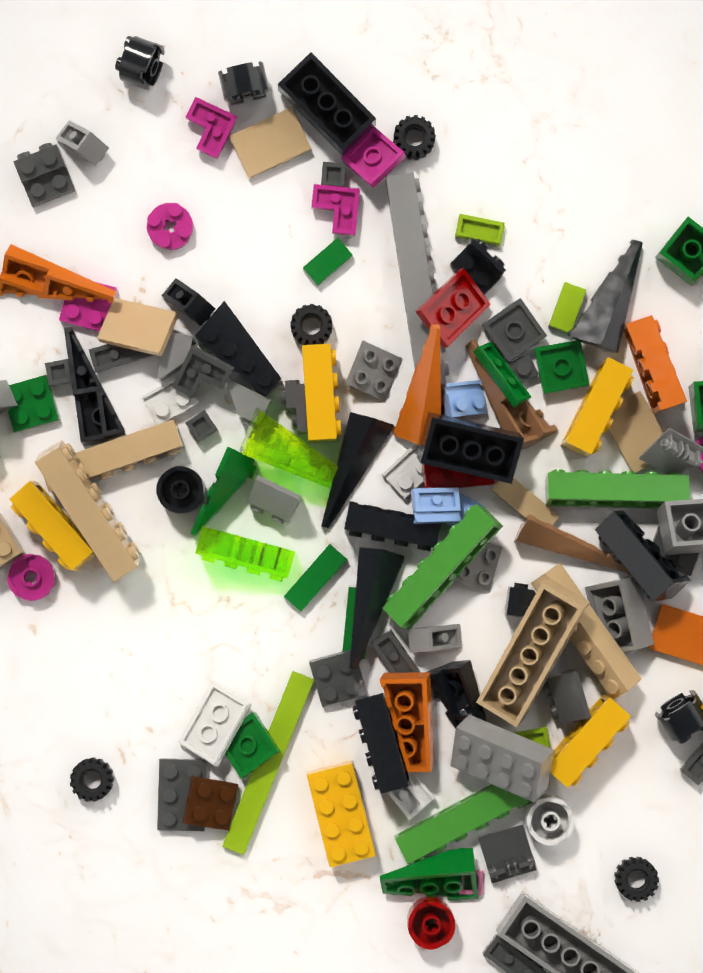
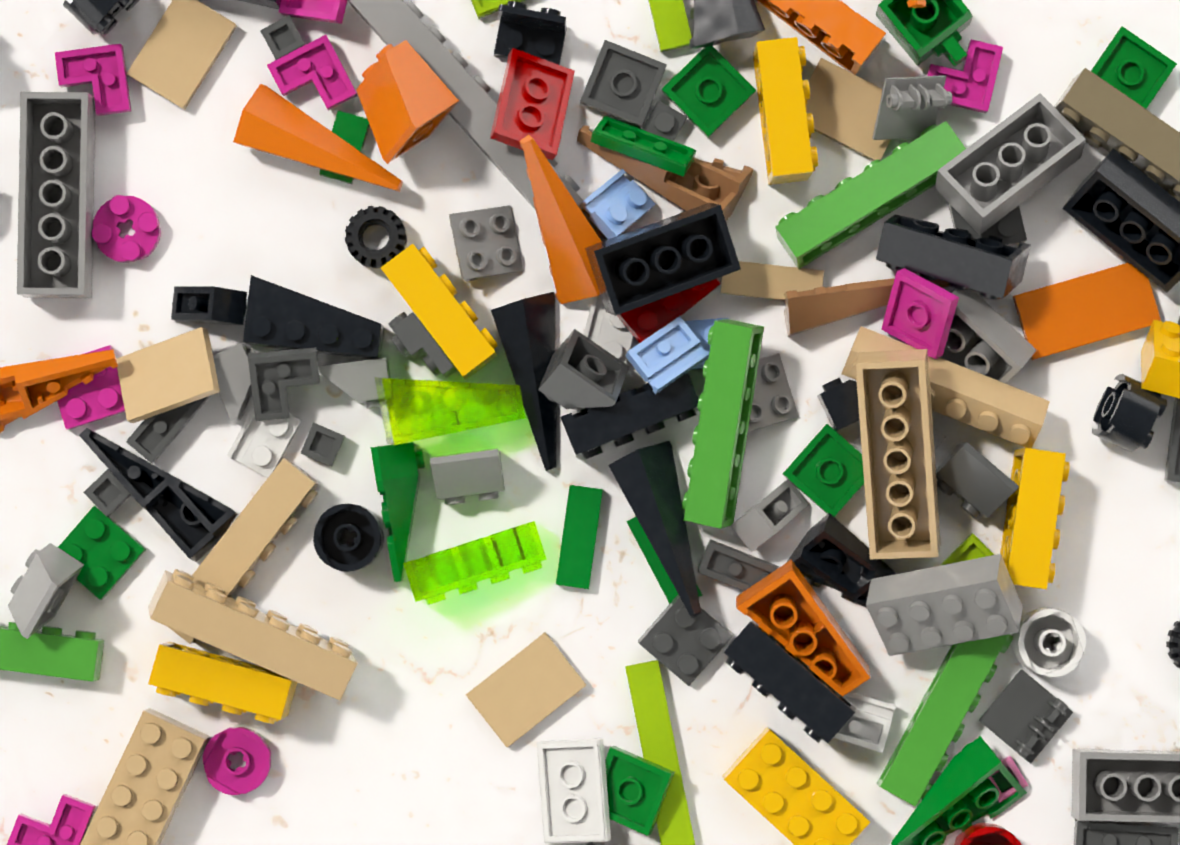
camera: 30 degrees left, 0 degrees up
(141, 180) = (56, 195): none -> light grey brick
(226, 646) = (526, 689): none -> tan tile
(300, 231) = (283, 130): none -> orange wedge
(379, 256) = (402, 100): none -> orange slope
(379, 485) = (583, 374): none -> dark grey slope
(485, 634) = (827, 471): none -> green plate
(599, 577) = (919, 313): none -> dark pink plate

